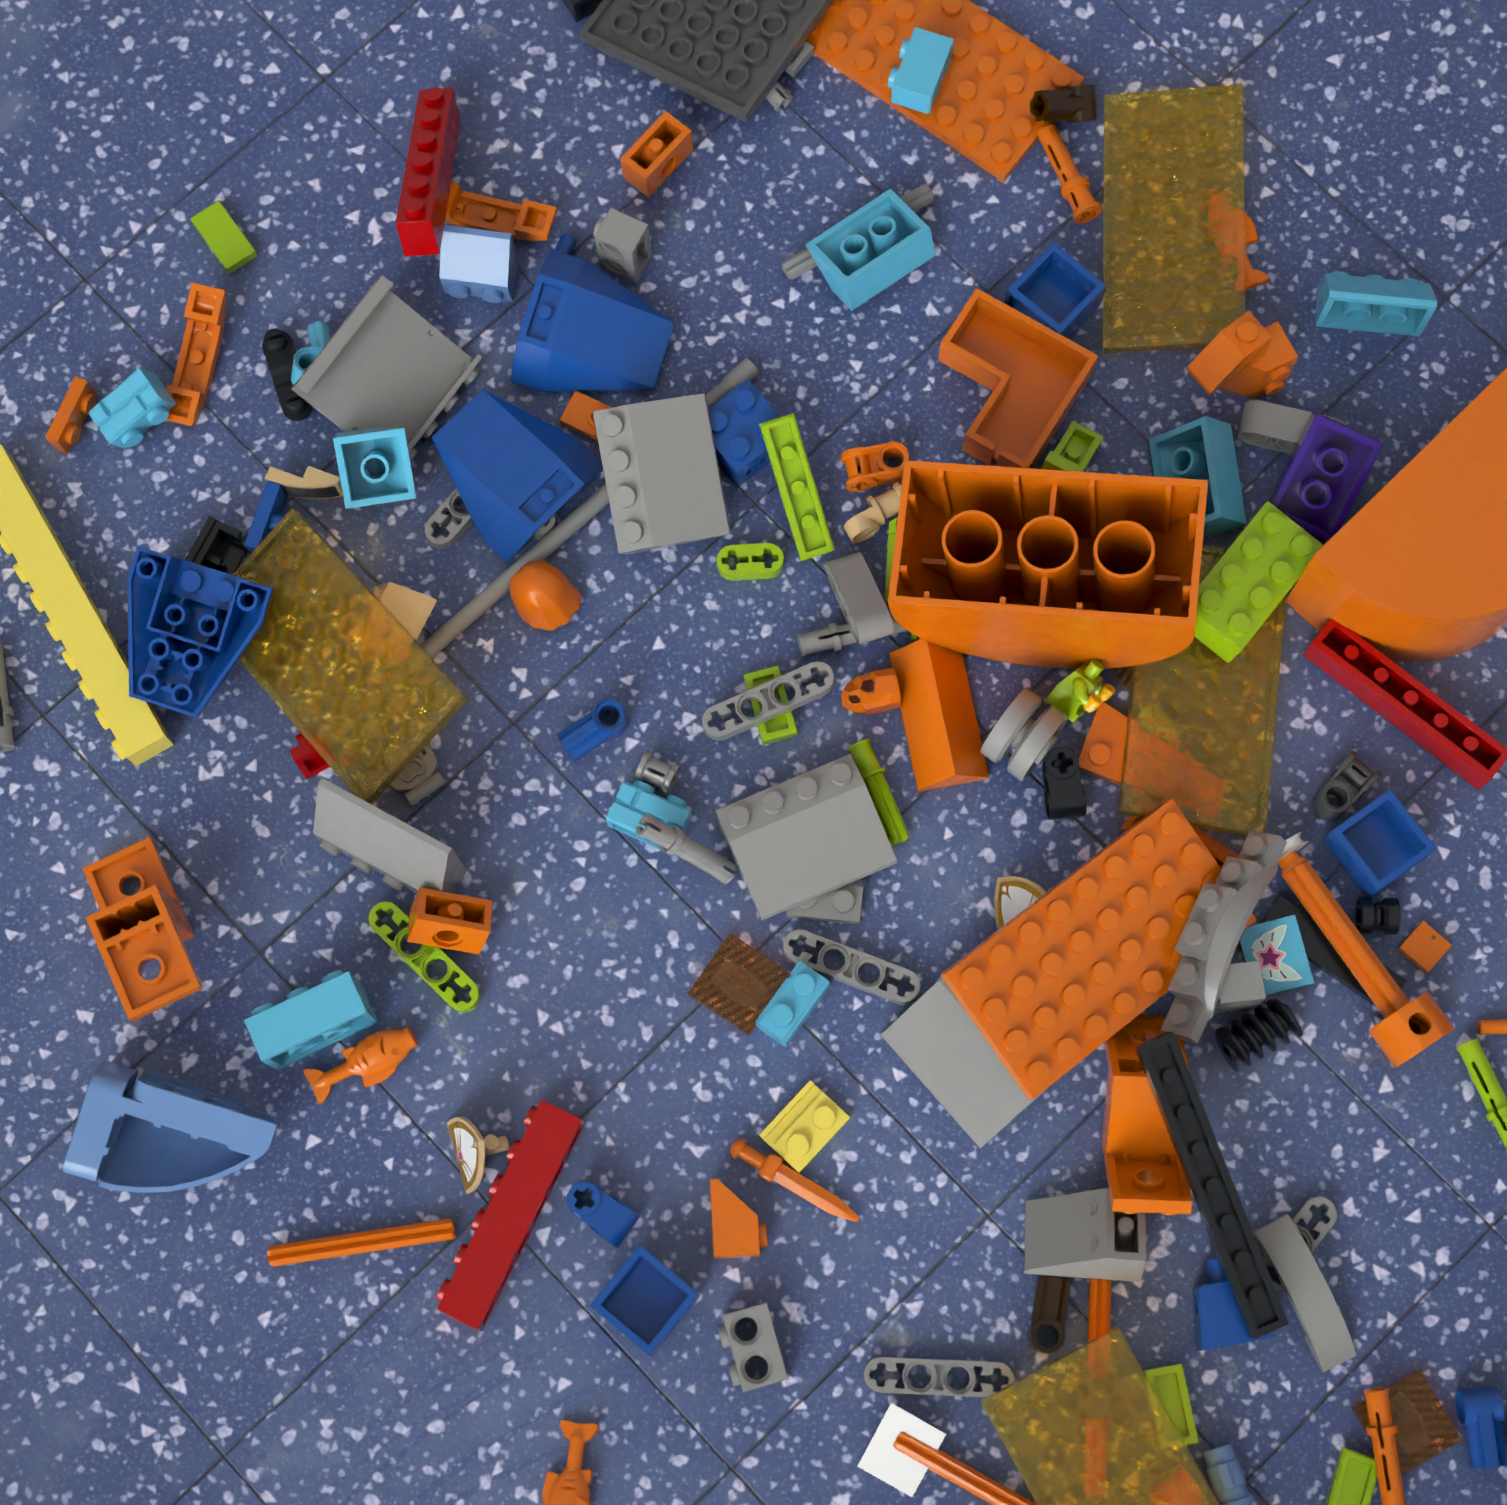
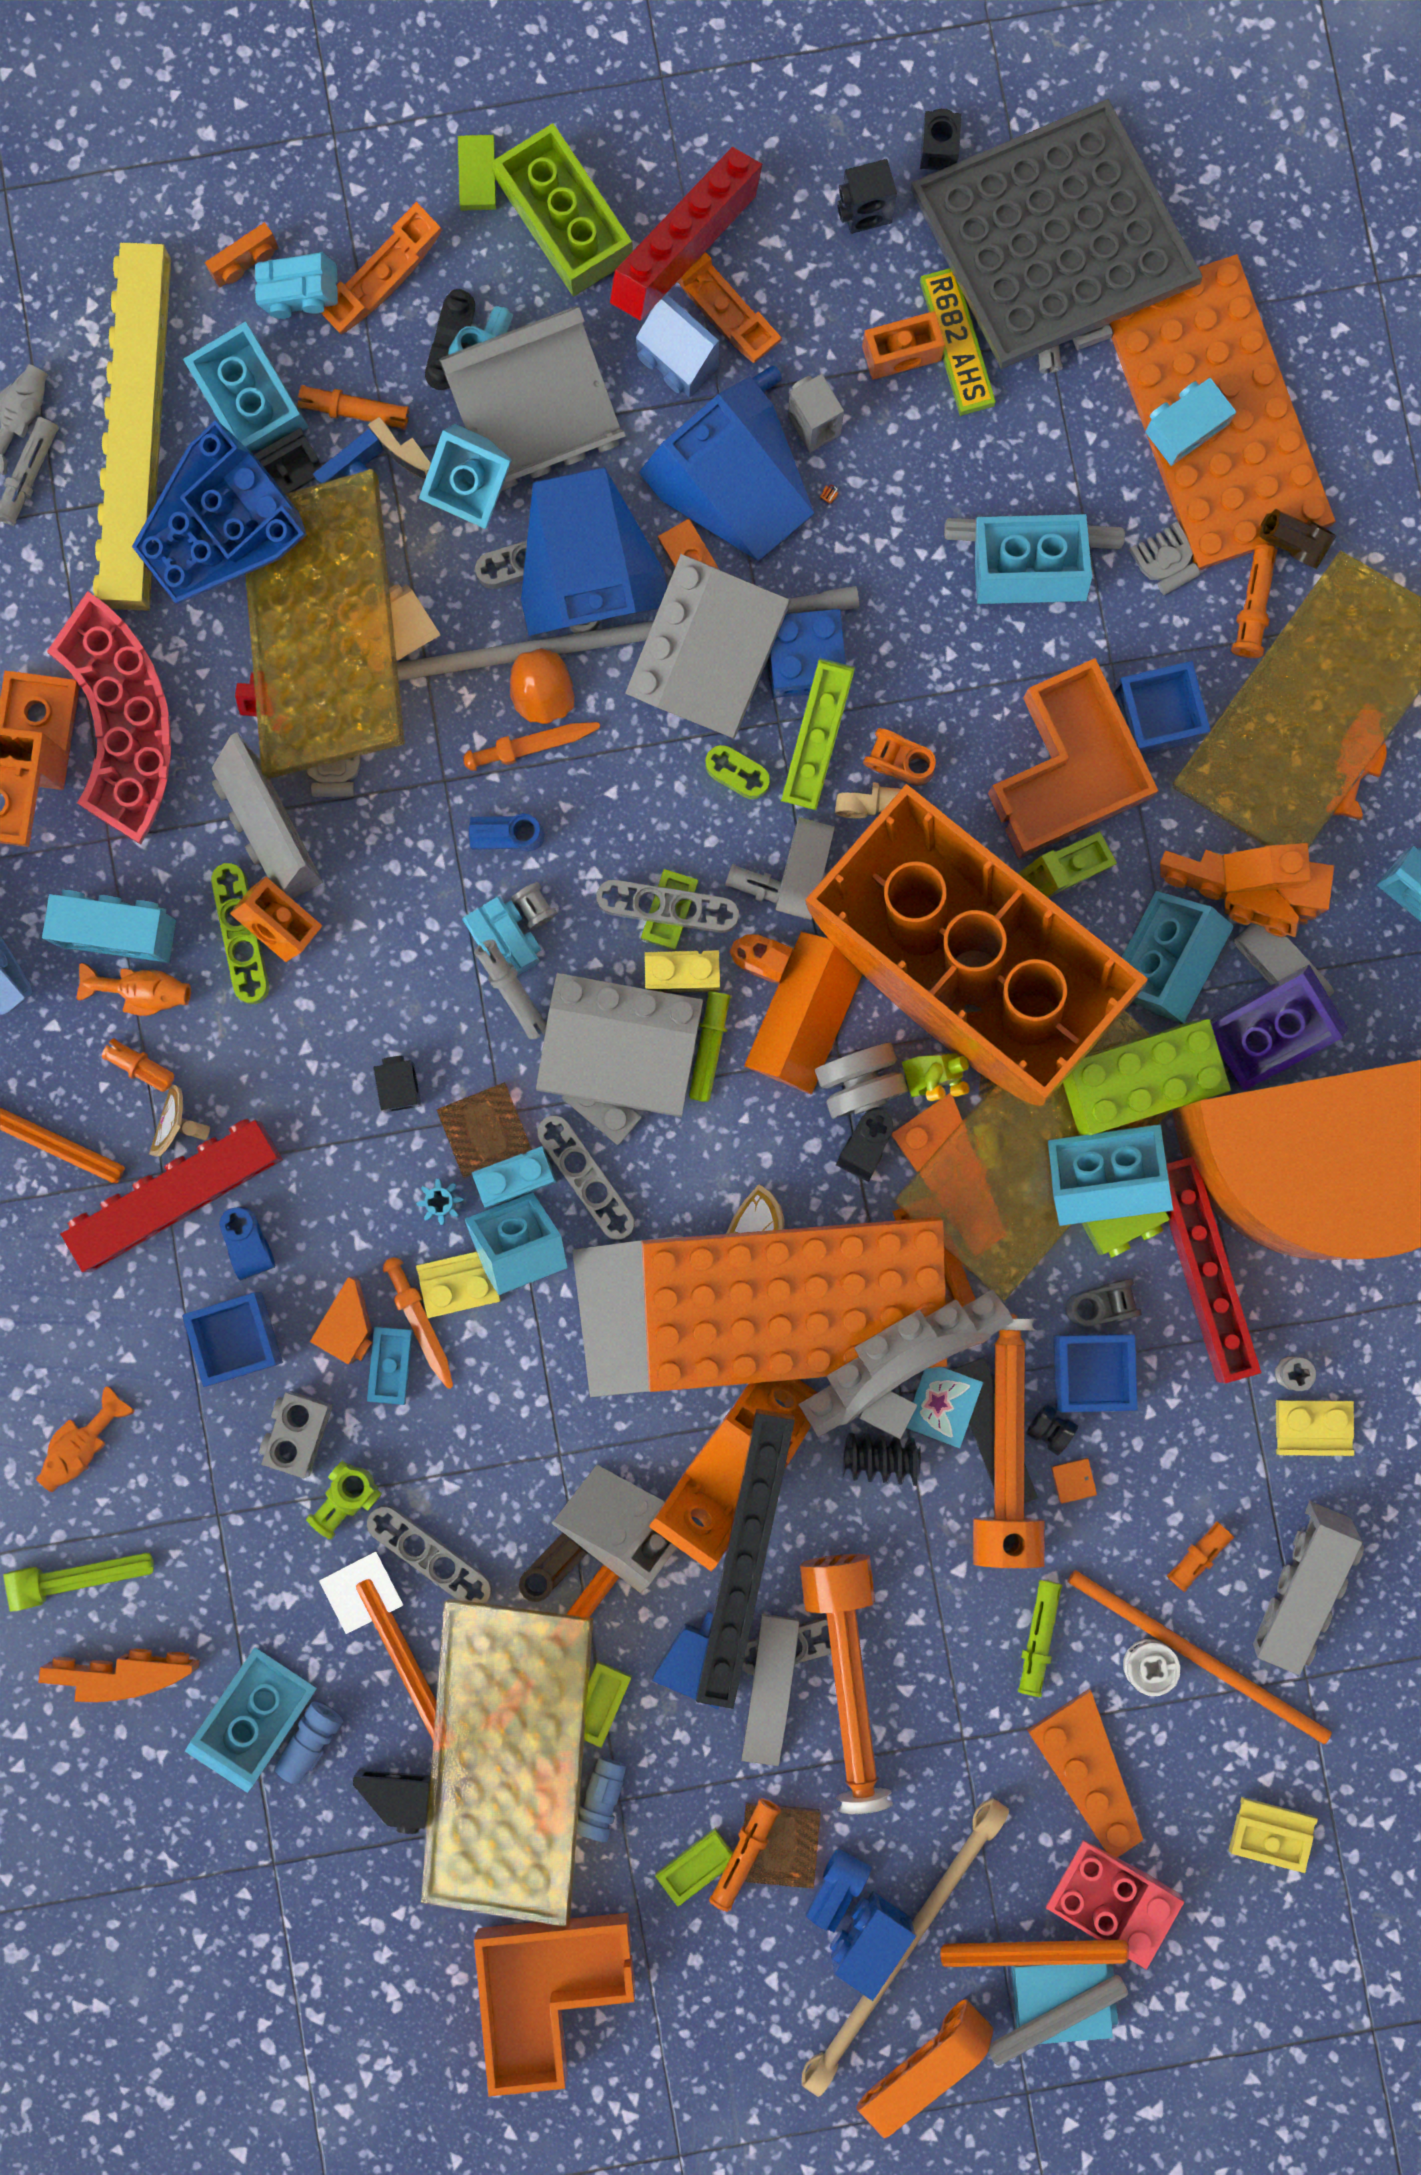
camera: 30 degrees right, 10 degrees up
(143, 512) = (245, 389): none -> medium azure slope
(215, 836) = (127, 717): none -> coral brick
(239, 476) = (353, 407): none -> orange pin
(314, 219) = (562, 209): none -> lime brick
(409, 1123) = (138, 1065): none -> orange axle
(551, 664) = (507, 750): none -> orange sword
(552, 61) = (867, 196): none -> black brick
(641, 993) = (397, 1084): none -> black brick
(674, 304) = (829, 494): none -> orange piece
(708, 136) = (961, 350): none -> tile
(745, 1056) = (433, 1194): none -> medium azure gear
(794, 1234) = (390, 1365): none -> dark azure plate
(816, 743) = (682, 971): none -> light yellow brick
(832, 1057) = (516, 1243): none -> medium azure slope
(834, 1379) = (342, 1500): none -> lime connector
(978, 188) = (1169, 562): none -> light grey piece
(1188, 398) = (1257, 907): none -> orange slope
(1279, 674) = (1109, 1175): none -> medium azure slope
(1301, 1164) = (838, 1588): none -> orange piece
(1311, 707) = (1114, 1234): none -> lime brick

